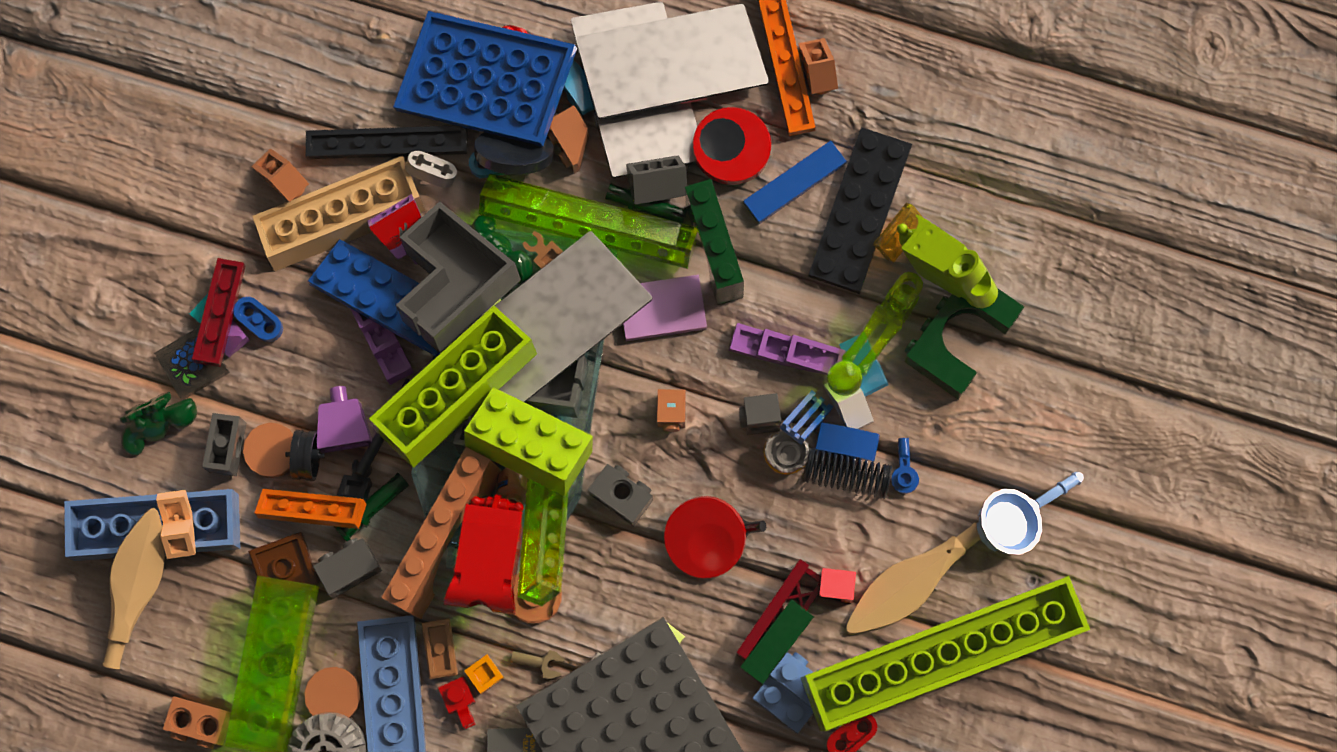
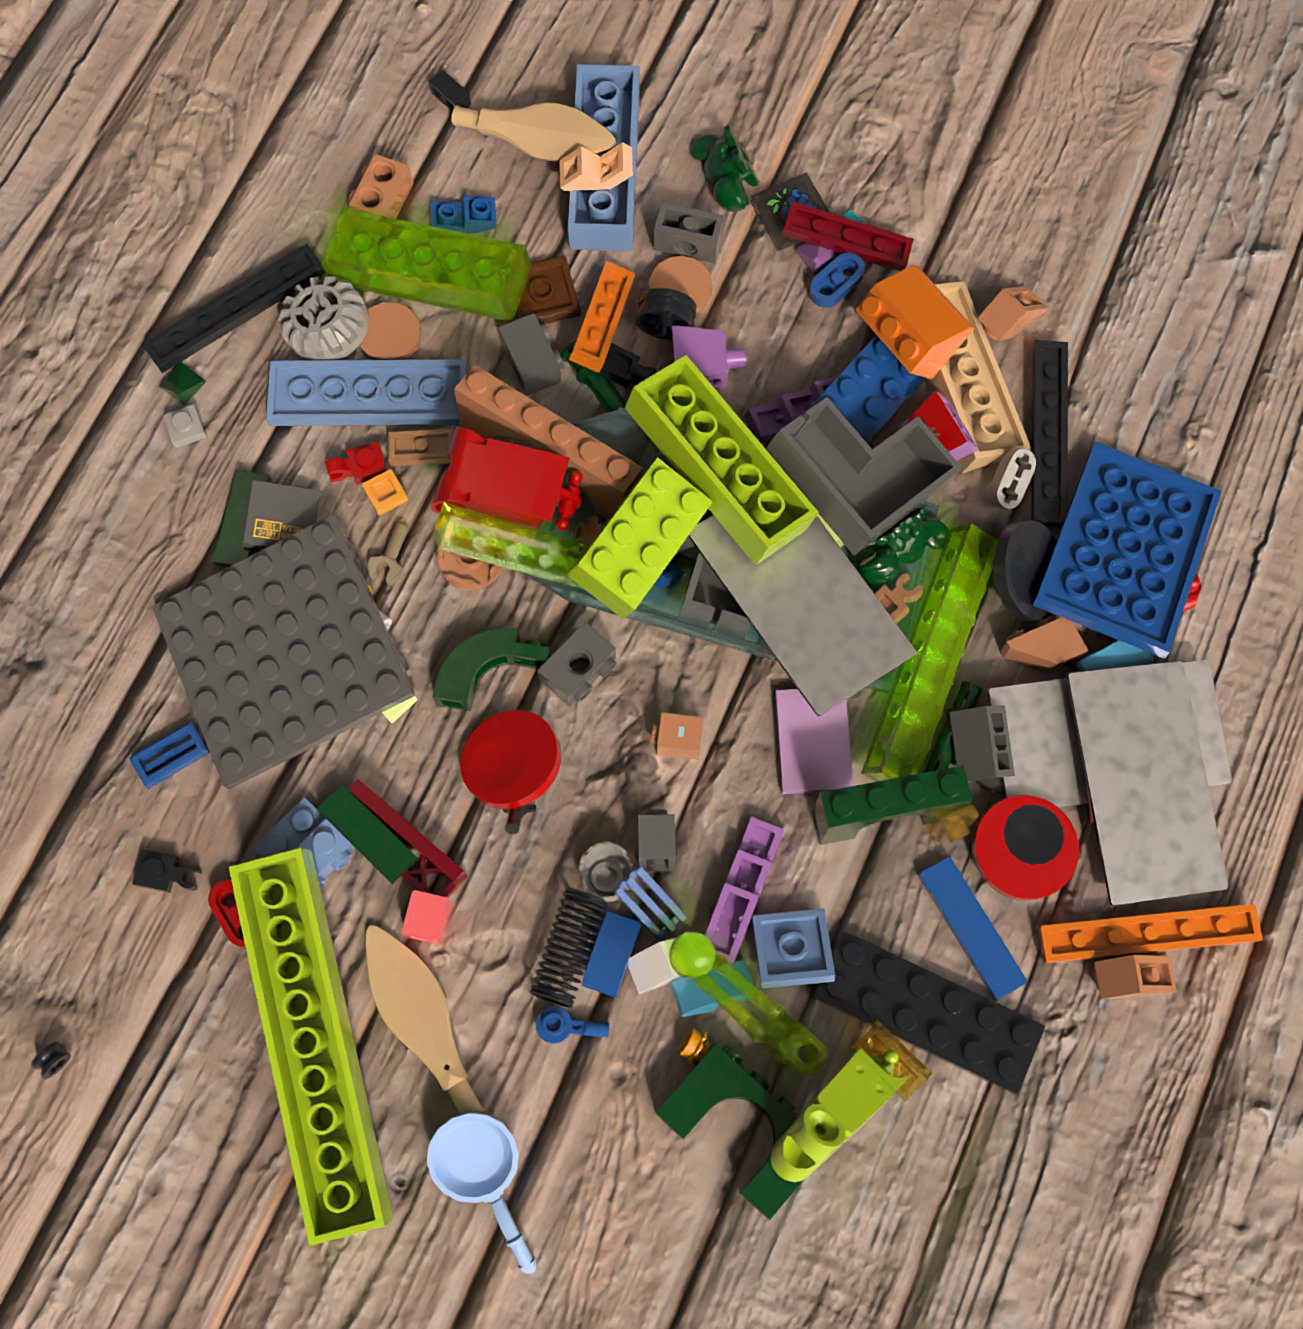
camera: 90 degrees right, 5 degrees down
(86, 676) = (449, 91): none -> black piece
(213, 647) = (469, 216): none -> blue slope
(302, 249) = (915, 321): none -> orange slope
(636, 586) = (479, 655): none -> dark green arch
(725, 196) = (954, 825): none -> clear yellow plate
(827, 308) = (793, 948): none -> medium blue plate
(907, 374) = (694, 1045): none -> light orange plate

